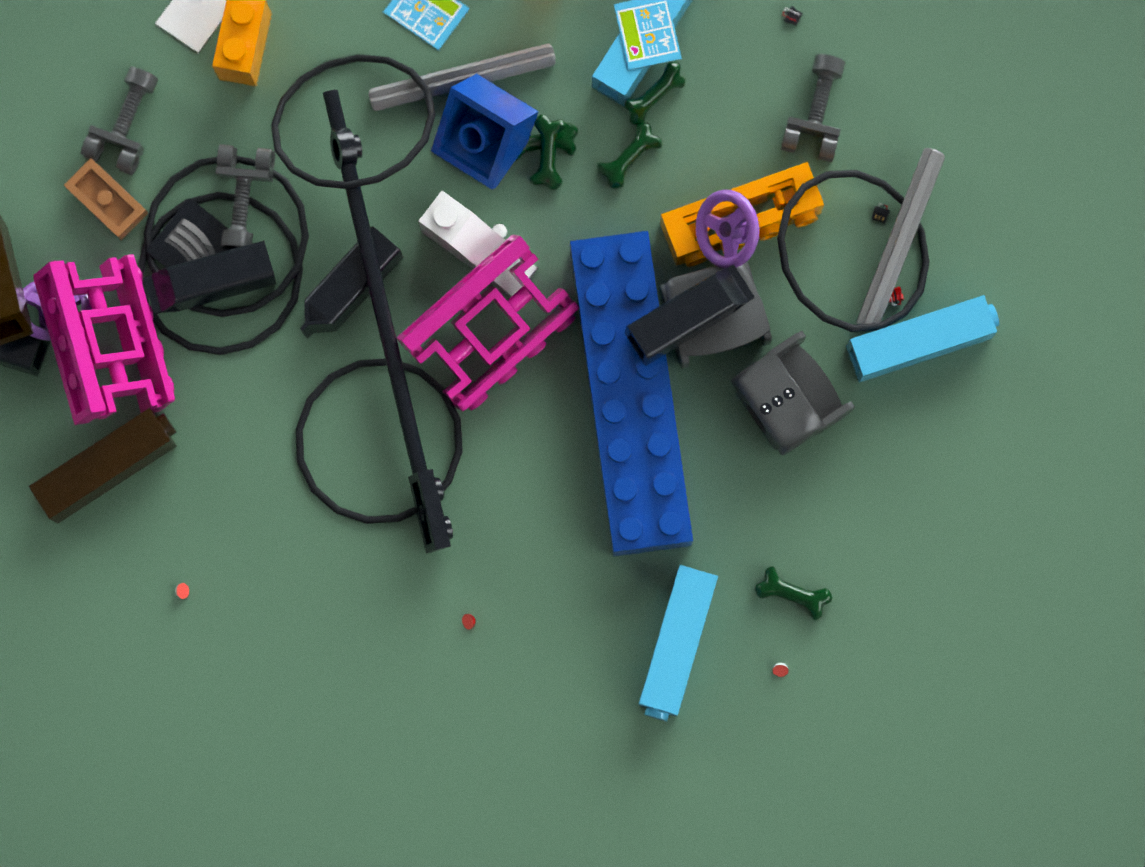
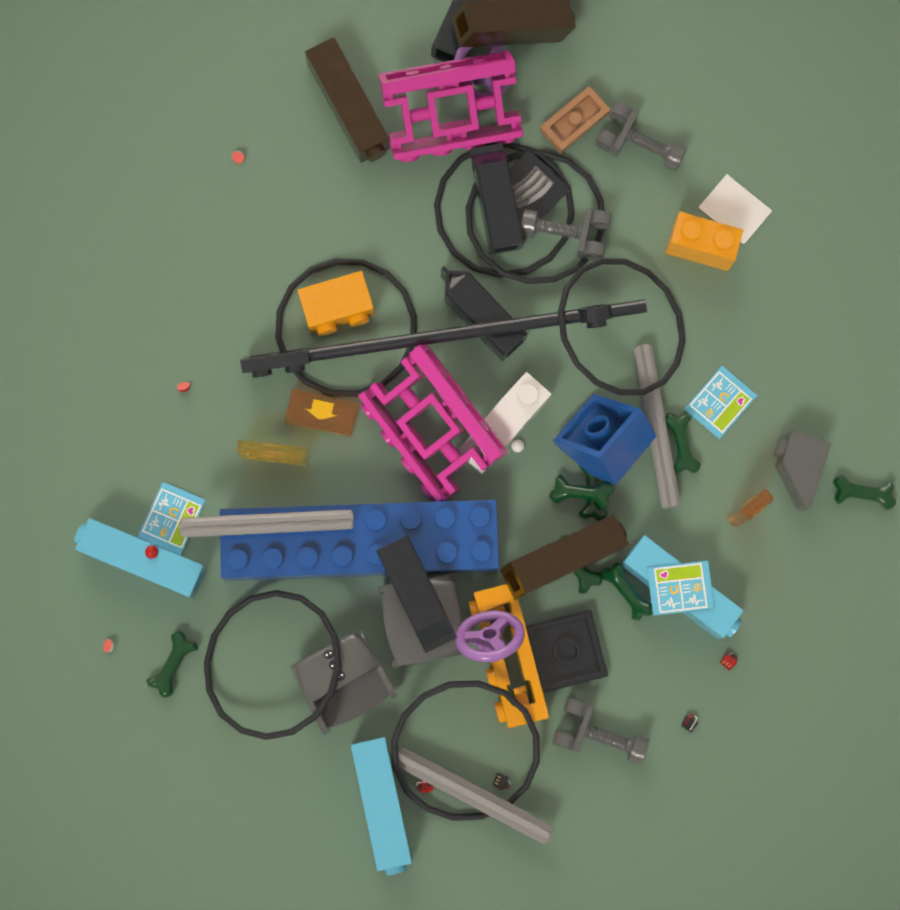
camera: 85 degrees right, 0 degrees up
(354, 451) = (336, 304): none -> light orange brick
(484, 456) = (321, 412): none -> clear orange tile
(496, 43) = (685, 458): none -> dark green piece
(538, 506) = (272, 452): none -> clear yellow tile
(625, 616) = (164, 517): none -> medium azure sticker
(626, 160) = (564, 556): none -> dark brown brick
(627, 492) = (266, 523): none -> light grey axle
(671, 625) = (151, 552): none -> red piece
(727, 152) = (566, 651): none -> black tile
(792, 397) = (337, 660): none -> black piece

